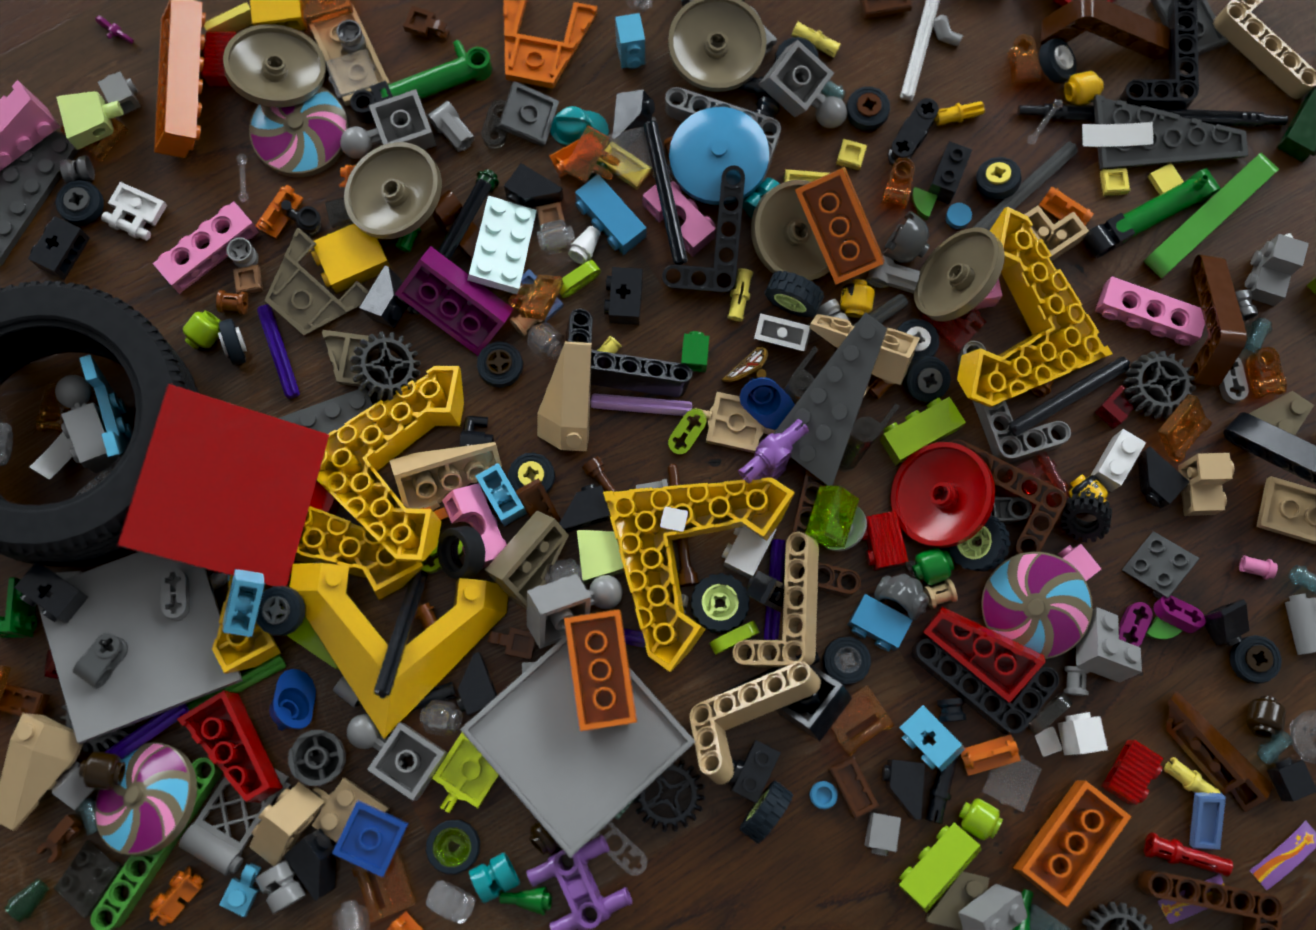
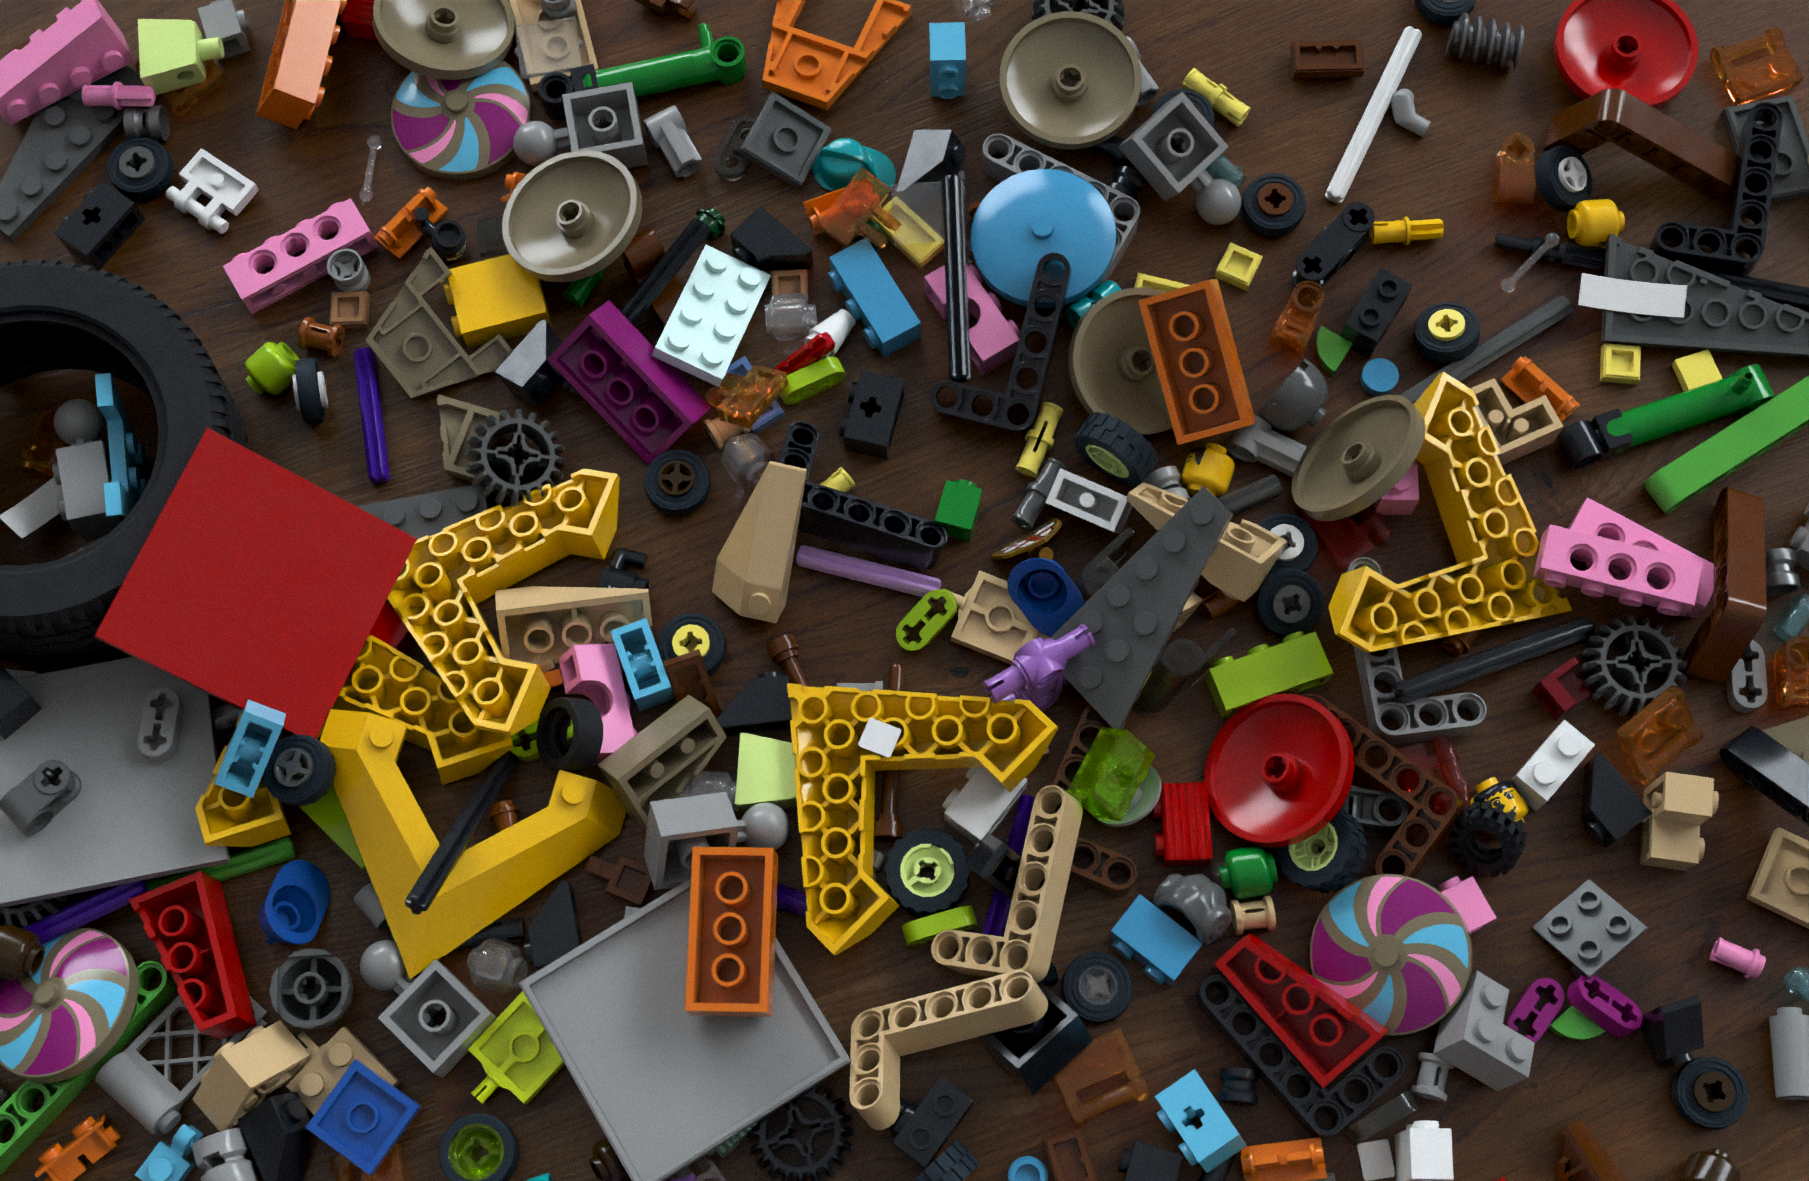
camera: 15 degrees right, 5 degrees down
(53, 153) = (118, 95): none -> bright pink axle
(573, 261) = (808, 353): none -> red axle
(746, 332) = (1036, 495): none -> dark grey pin
(1181, 320) = (1677, 573): none -> bright pink brick

